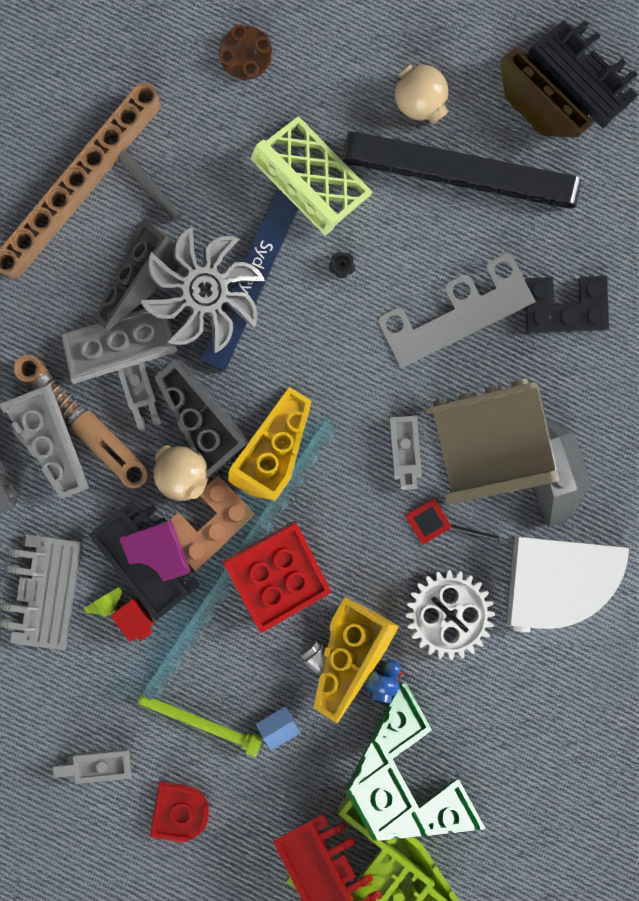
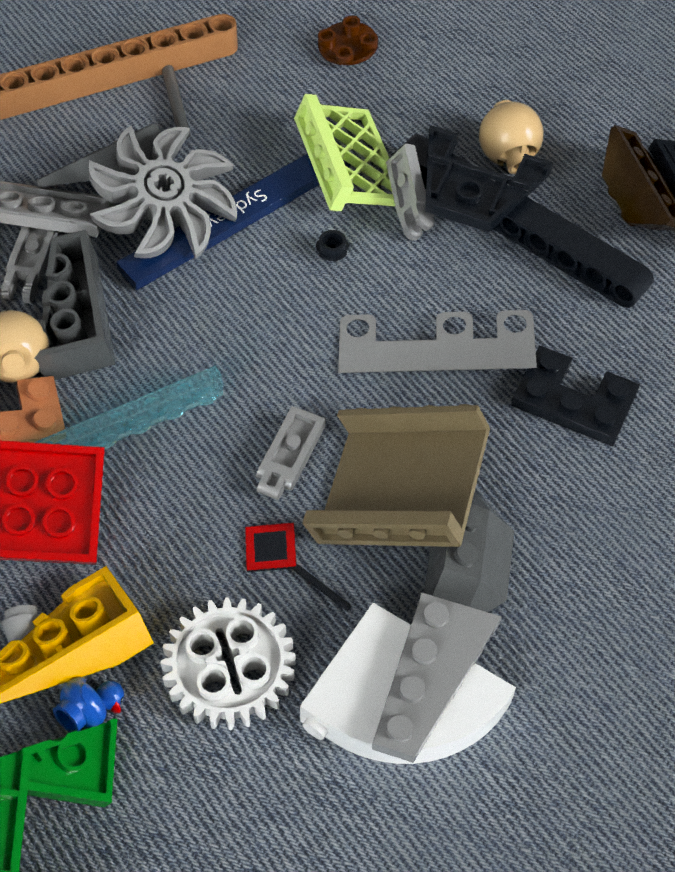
camera: 25 degrees right, 30 degrees down
(271, 454) = (129, 371): yellow wedge -> none
(375, 191) = (409, 192): none -> light grey hinge
(423, 177) = (471, 192): none -> black wing
(577, 562) = (432, 666): none -> light grey wing

